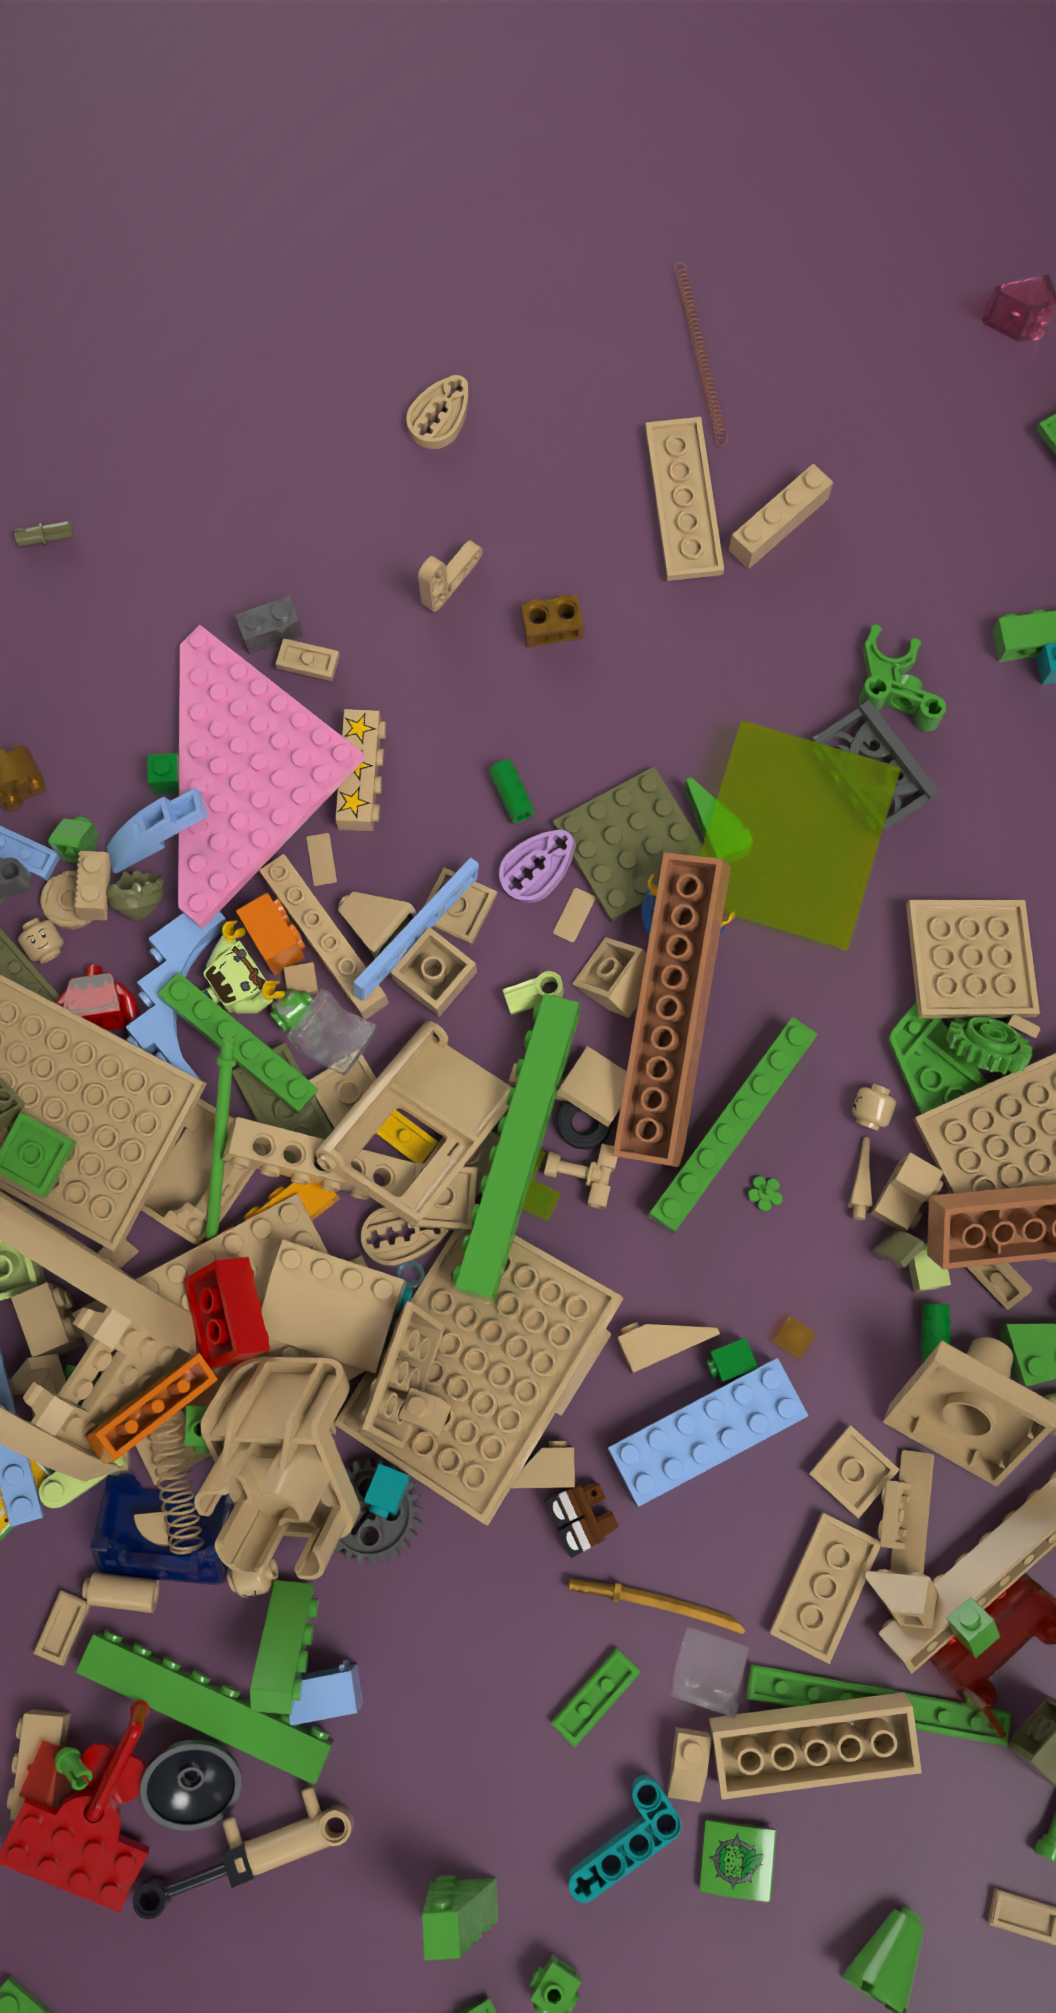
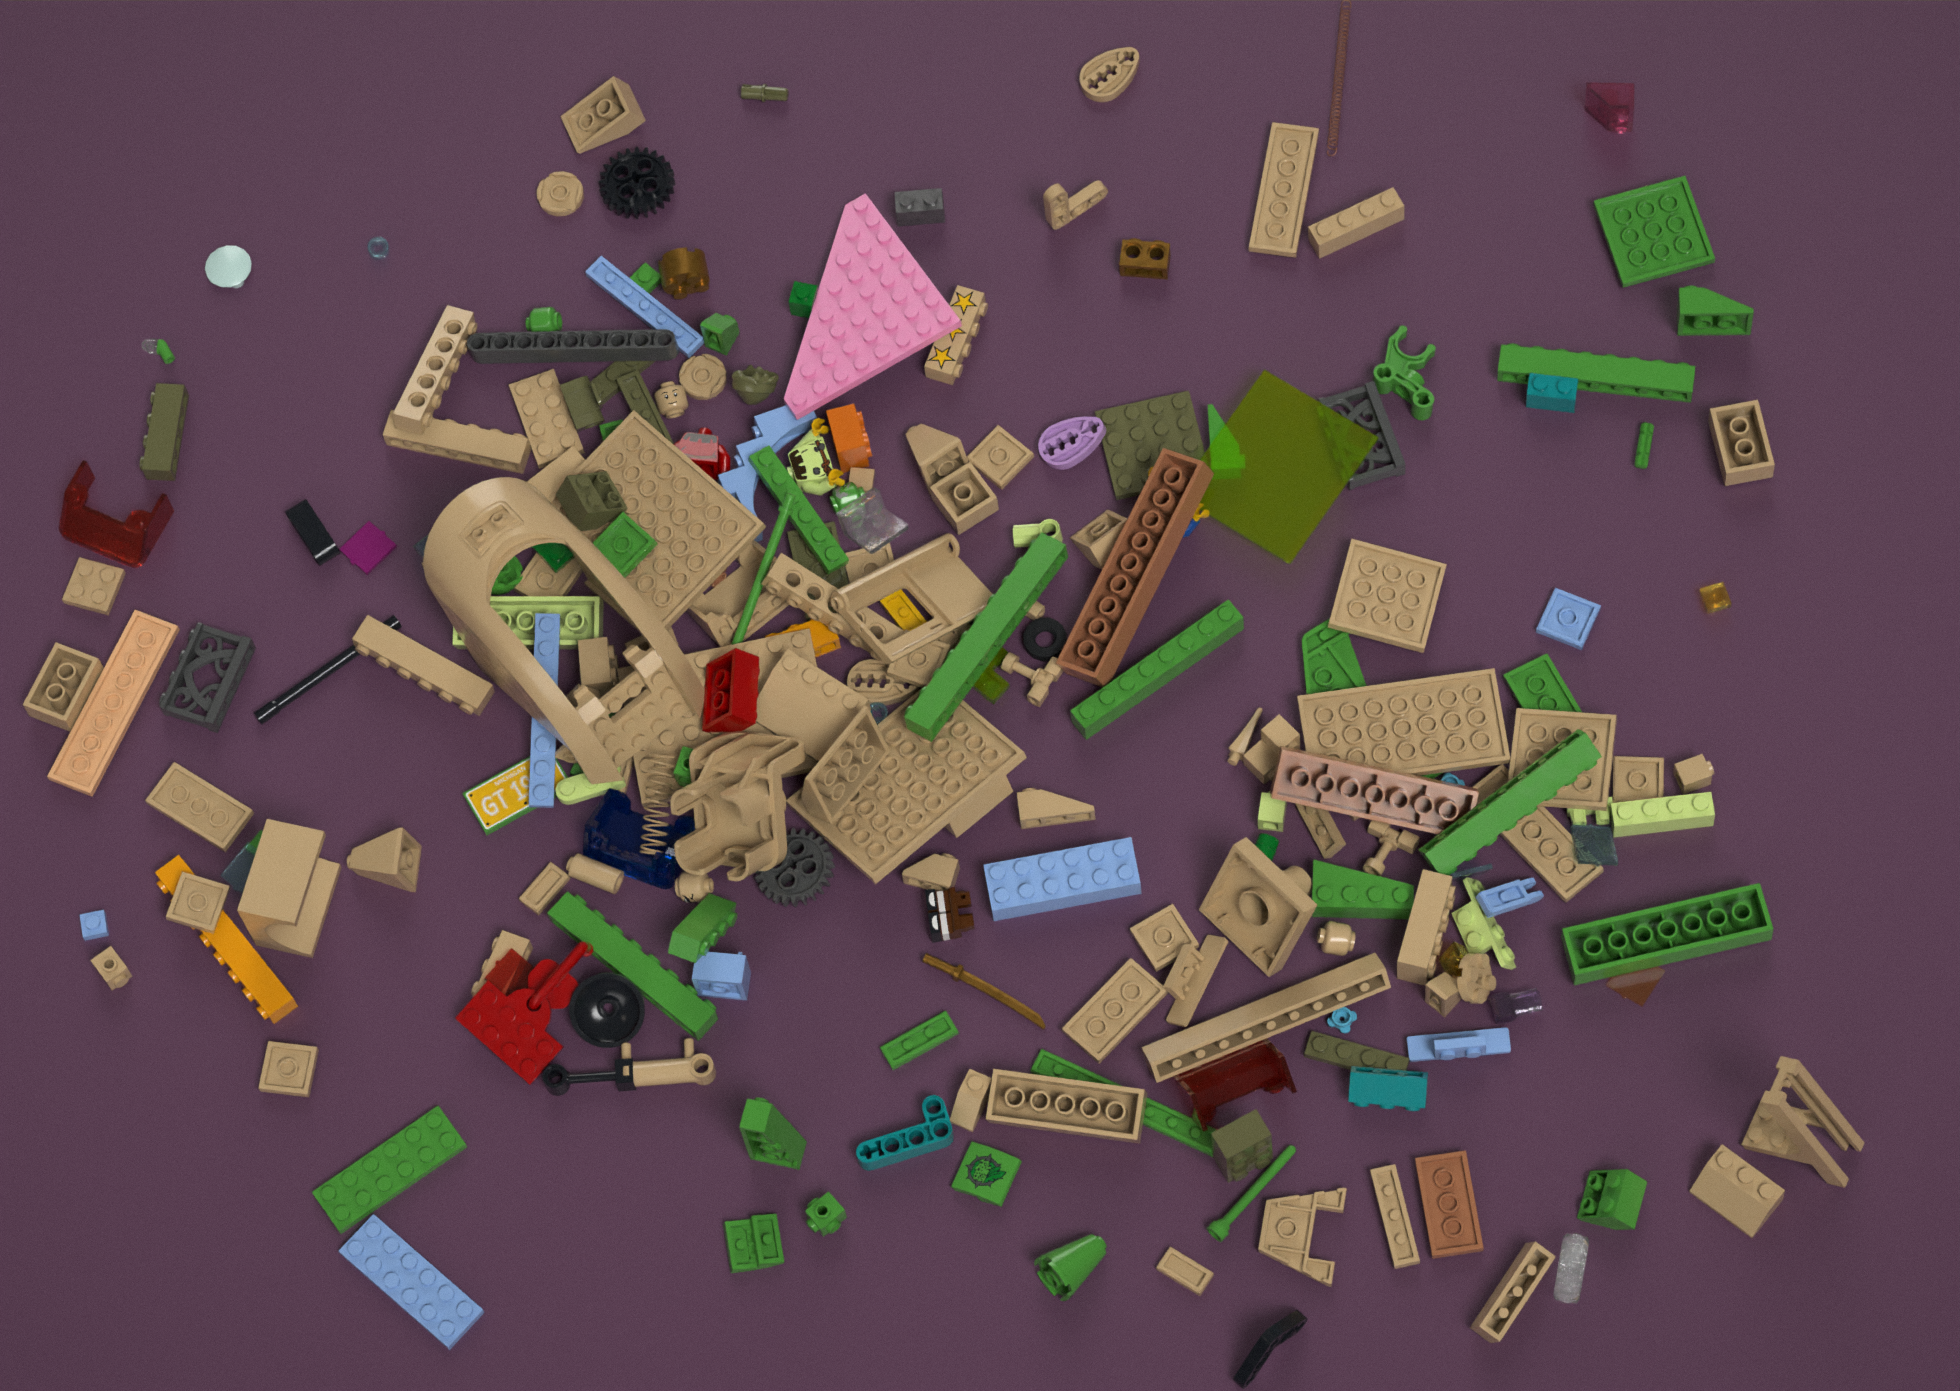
camera: 25 degrees right, 10 degrees down
(69, 1763) = (527, 965): bright green pin -> none
(92, 883) = (722, 367): tan brick -> none
(150, 1408) = (658, 736): orange brick -> none
(151, 826) = (777, 336): light blue slope -> none
(152, 1527) = (631, 835): tan tile -> none
(307, 659) = (942, 241): tan plate -> none
(320, 932) = (888, 452): tan brick -> none
(321, 859) = (905, 396): tan sticker -> none
(386, 1491) = (810, 847): teal brick -> none
(425, 1411) = (855, 797): tan brick -> none
(427, 917) = (972, 453): light blue tile -> none
(511, 791) = (1069, 381): green axle -> none
(574, 915) = (1089, 487): tan sticker -> none
(595, 1086) = (1058, 612): tan tile -> none
(709, 1671) = (1008, 1042): clear bracket -> none
(731, 1360) = (1097, 831): green brick -> none
(765, 1193) = (1167, 728): bright green plant -> none
(794, 1338) = (1153, 835): clear yellow plate -> none
(873, 1107) = (1271, 685): tan head -> none
(898, 1248) = (1252, 787): olive slope -> none
(907, 1597) = (1170, 1024): tan slope -> none
(973, 1627) = (1209, 1053): bright green brick -> none
(989, 1044) = (1374, 658): bright green gear -> none
(1023, 1025) = (1409, 655): tan tile -> none

